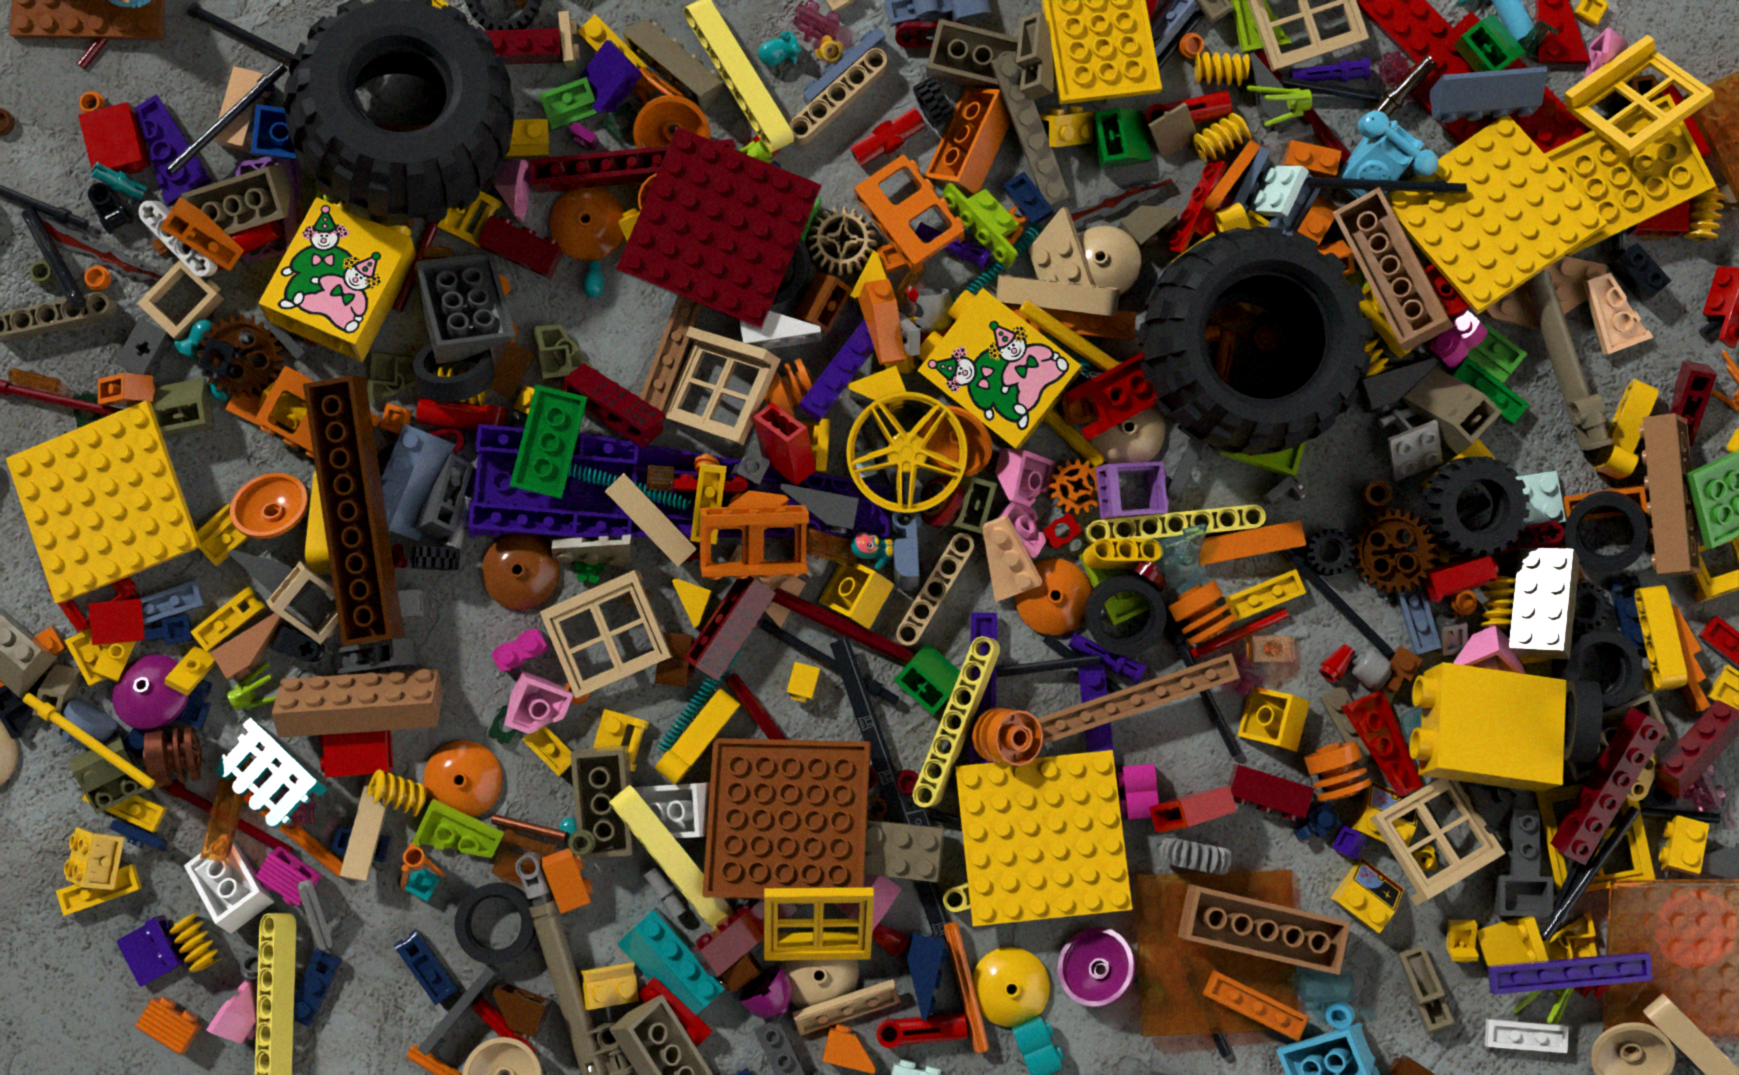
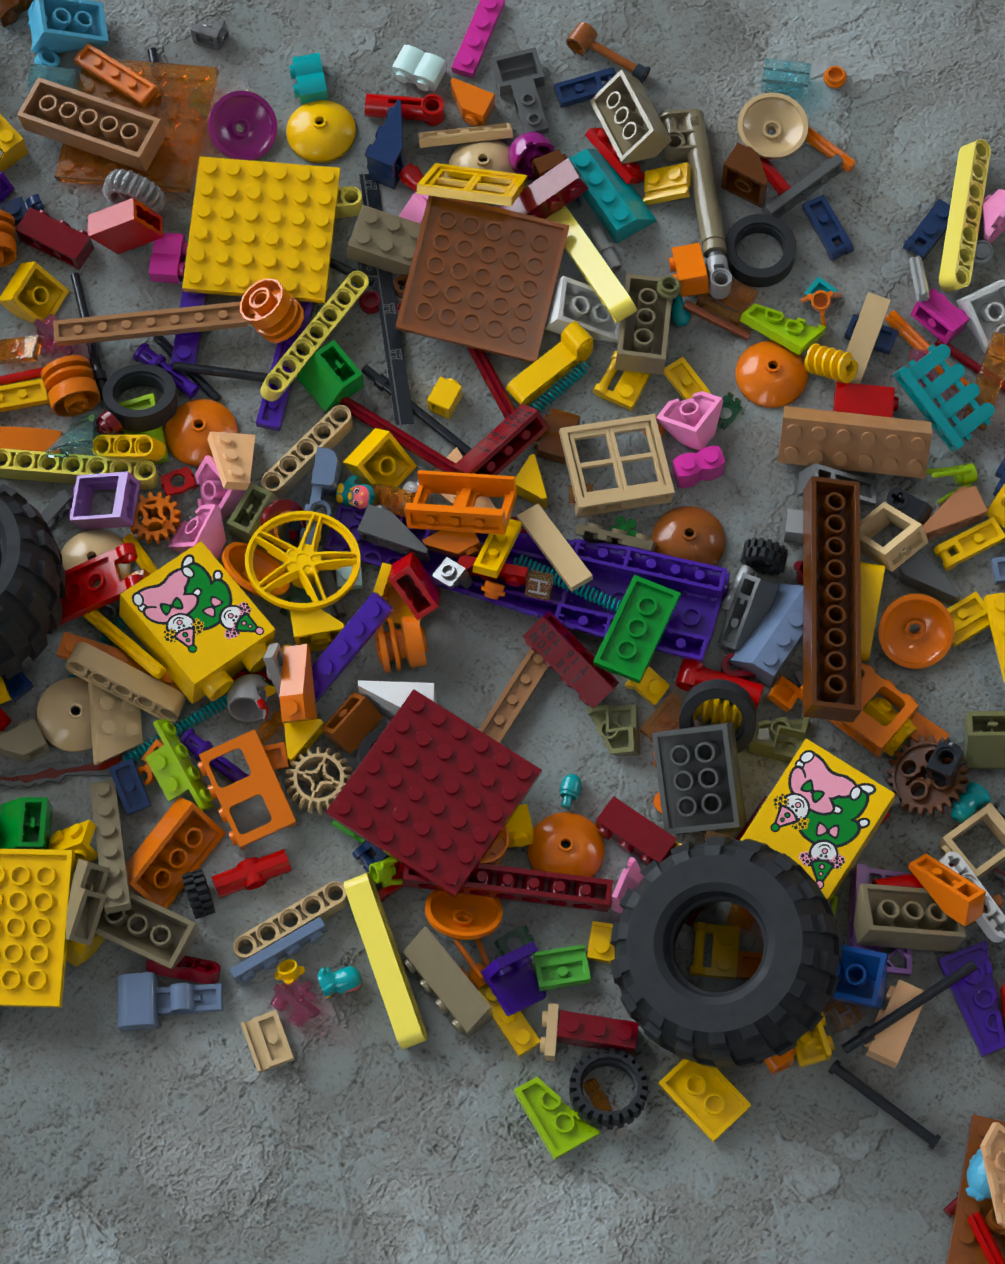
camera: 165 degrees left, 15 degrees down
(583, 136) = (553, 930): magenta plate -> none
(735, 353) = (445, 683): tan window -> none
(966, 987) = (358, 133): orange axle -> none

